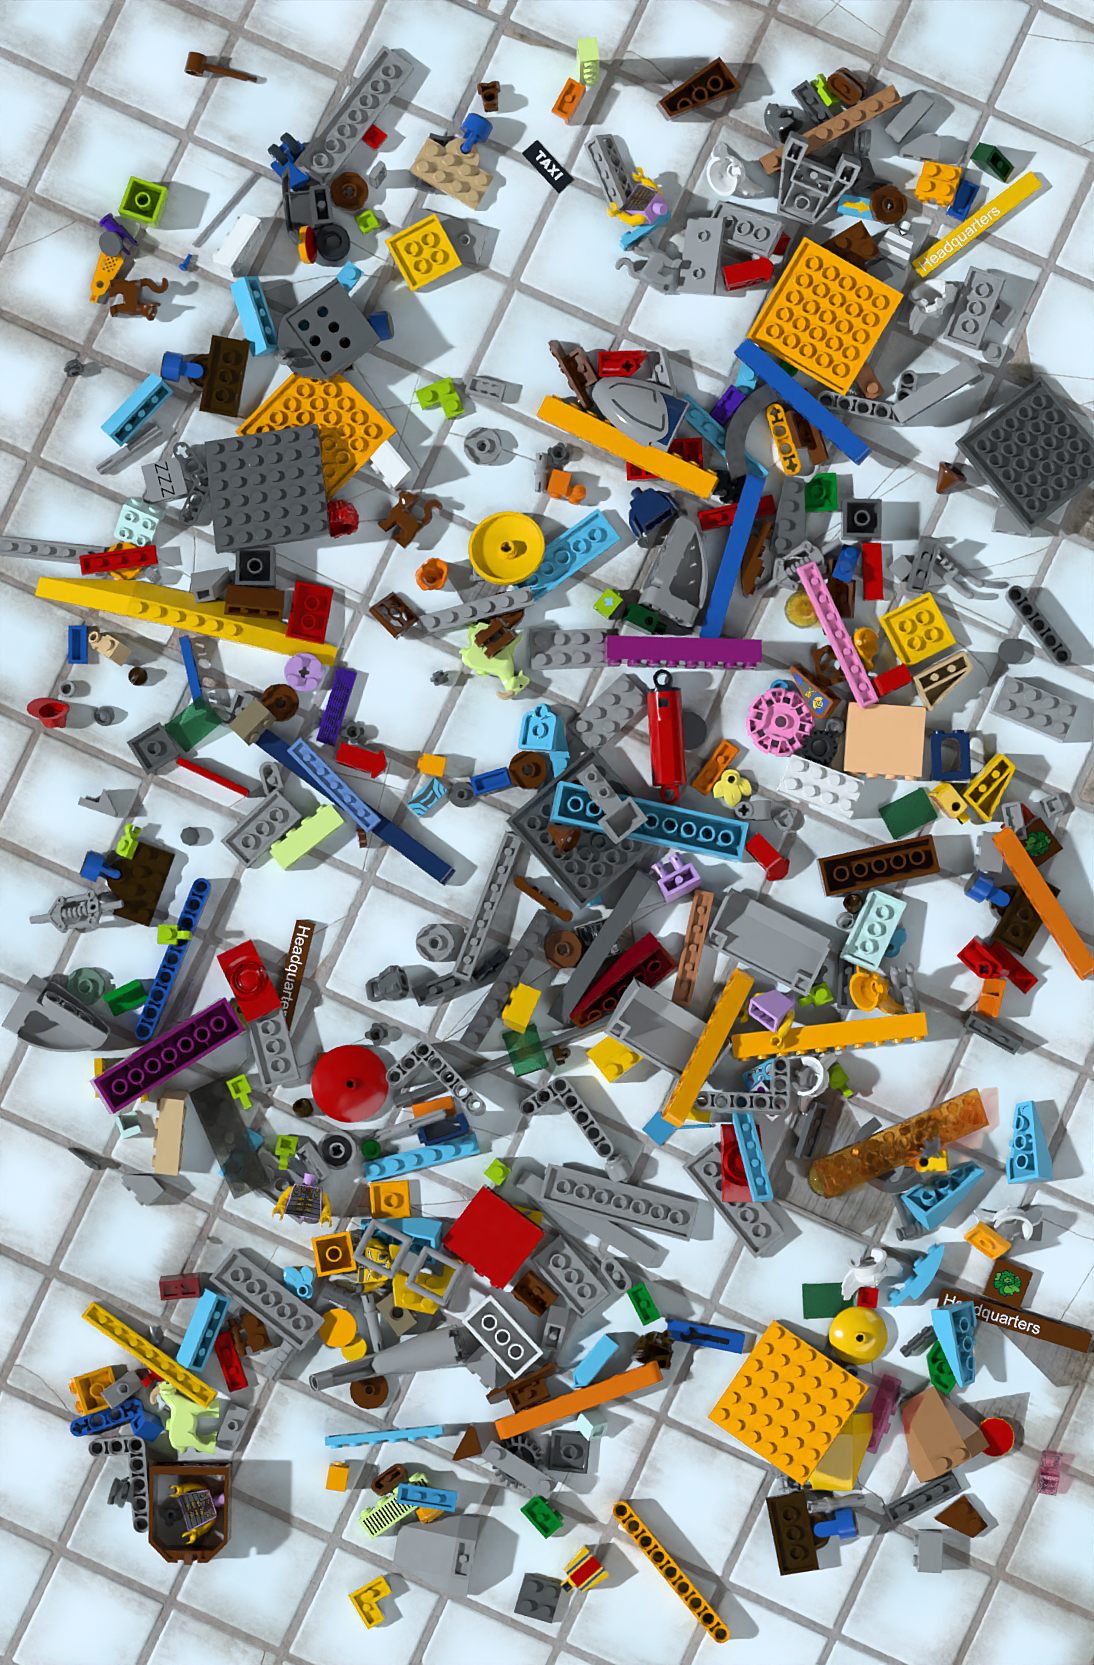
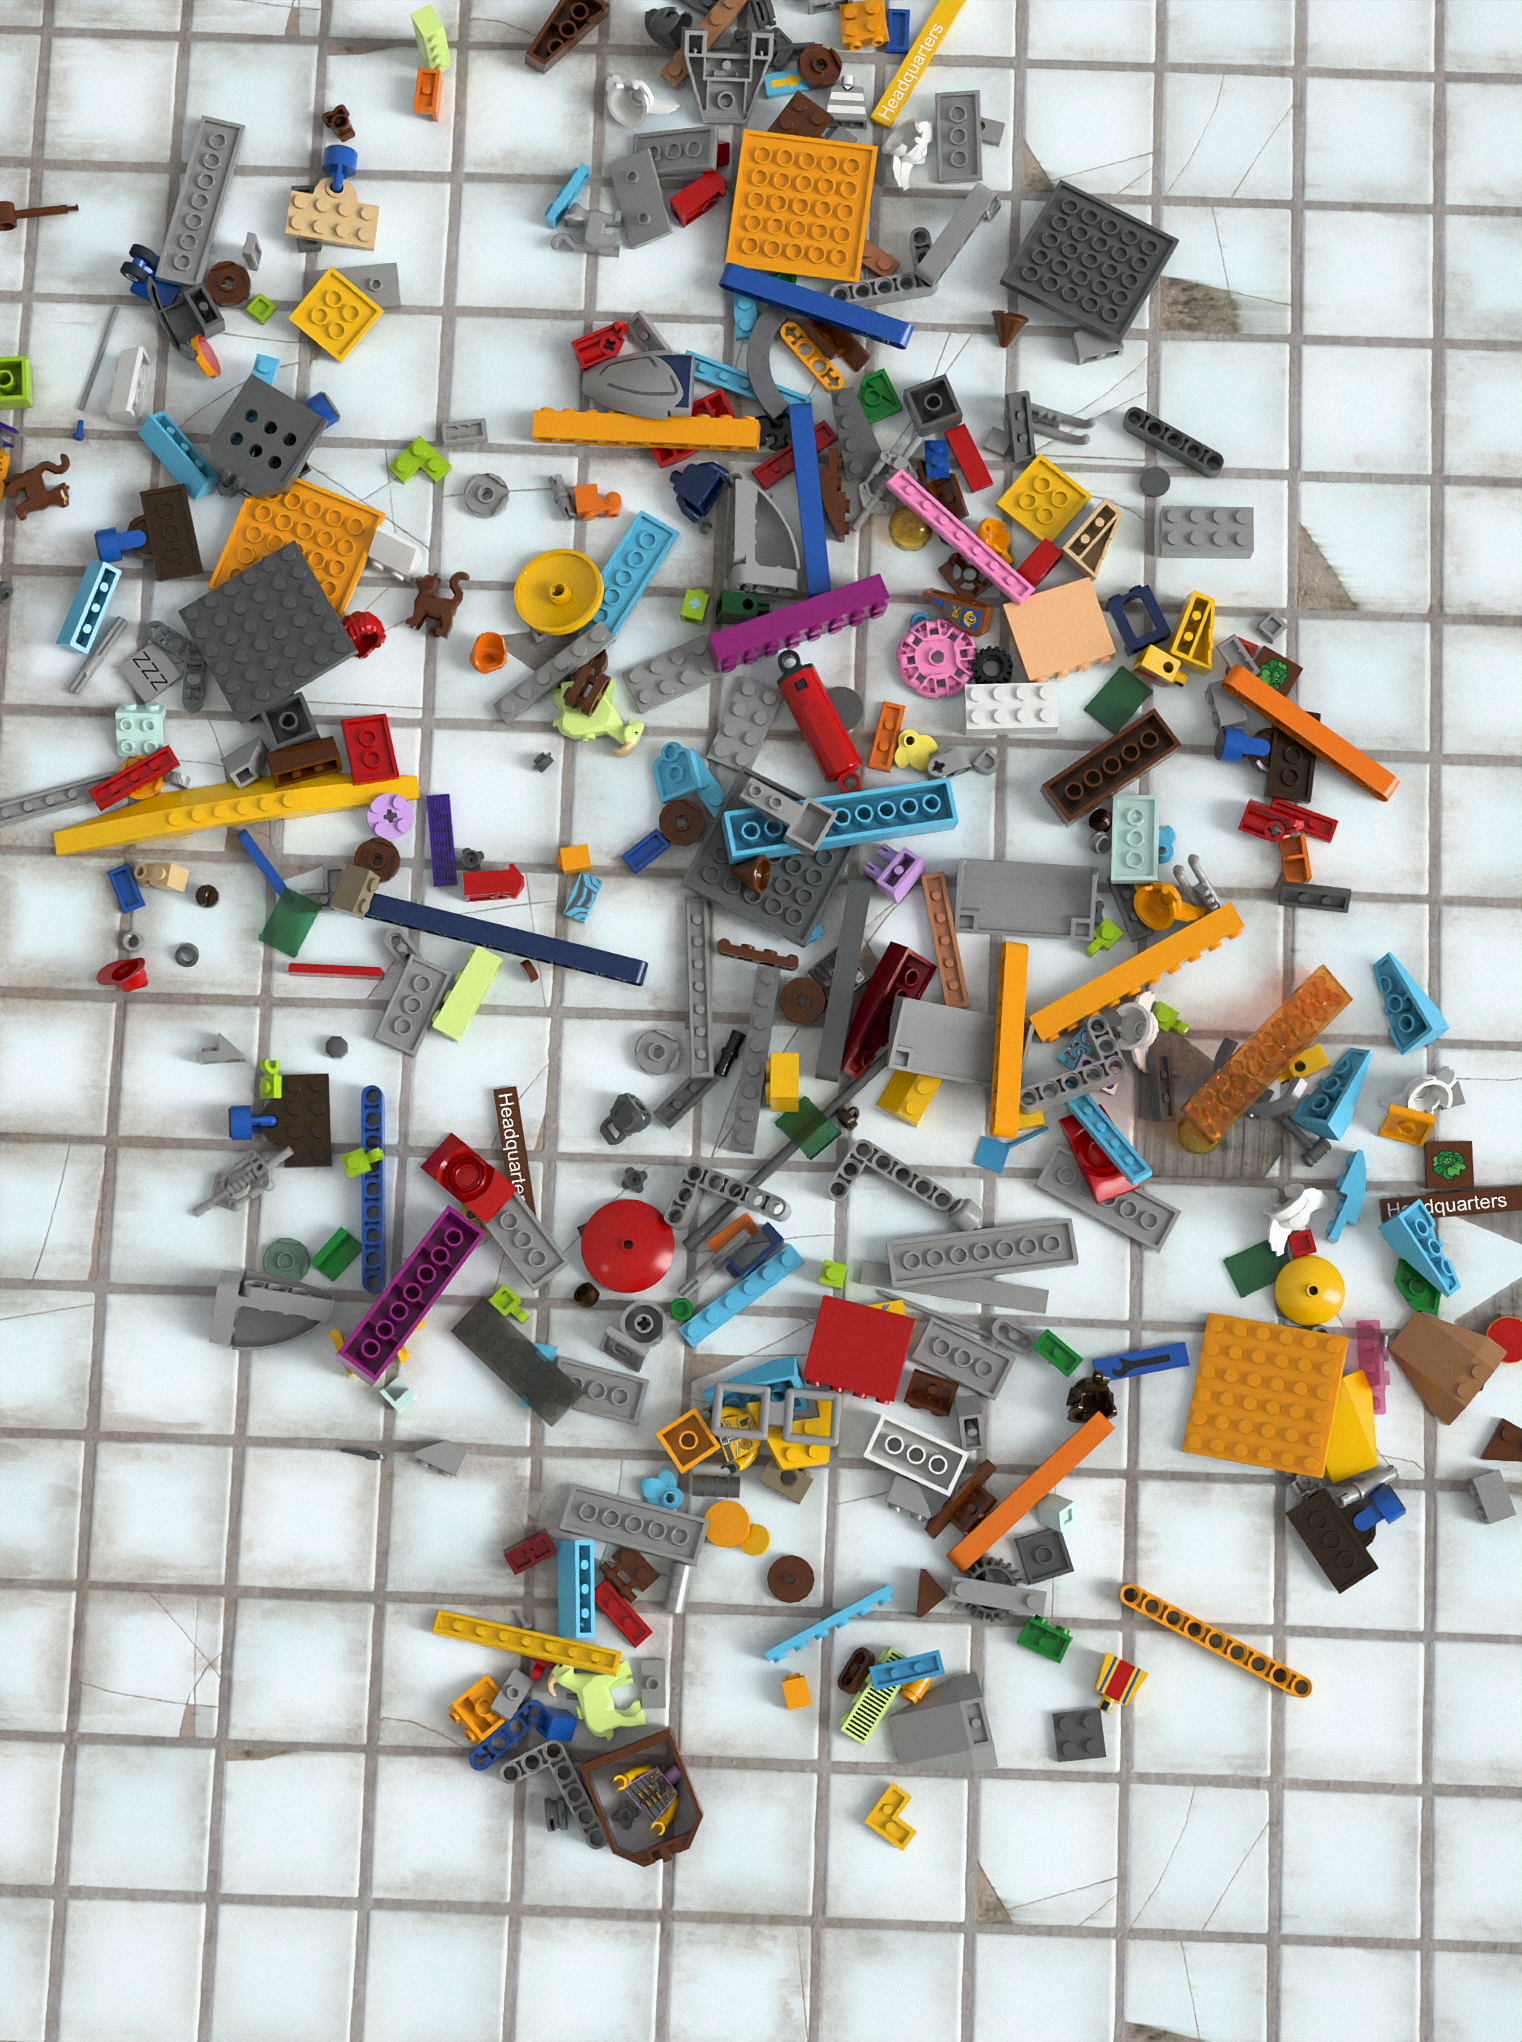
camera: 20 degrees left, 5 degrees down
(153, 748) = (256, 967): dark grey plate -> none
(170, 1131) = (448, 1383): tan wedge -> none
(286, 1148) = (586, 1346): lime plate -> none
(305, 1201) = (632, 1395): torso -> none
(328, 231) = (226, 332): black tyre -> none
(334, 785) = (474, 923): medium blue tile -> none
(371, 1315) = (758, 1492): light grey pin -> none
(374, 137) = (232, 216): red plate -> none
(390, 1199) = (726, 1356): light orange tile -> none
(399, 606) = (460, 701): reddish brown piece -> none
(421, 1353) = (833, 1511): light grey brick -> none
(461, 794) = (620, 879): dark grey piece -> none
(547, 166) = (433, 173): black sticker -> none
(560, 447) = (570, 464): dark grey plate -> none
(577, 370) = (557, 372): reddish brown bracket -> none
(594, 1361) = (1029, 1441): medium azure piece -> none
(606, 171) = (504, 153): light grey fence -> none
(643, 204) = (554, 169): torso -> none
(727, 405) = (736, 344): dark purple plate -> none
(767, 857) = (985, 808): red piece -> none
(772, 1011) = (1061, 971): lavender torso -> none
(840, 722) = (999, 631): dark grey piece -> none
(916, 1341) = (1377, 1270): dark grey axle -> none
(921, 1497) = (1457, 1441): dark grey tile -> none
(930, 1148) = (1302, 1047): flat silver piece -> none
(991, 352) = (997, 176): light grey plate -> none

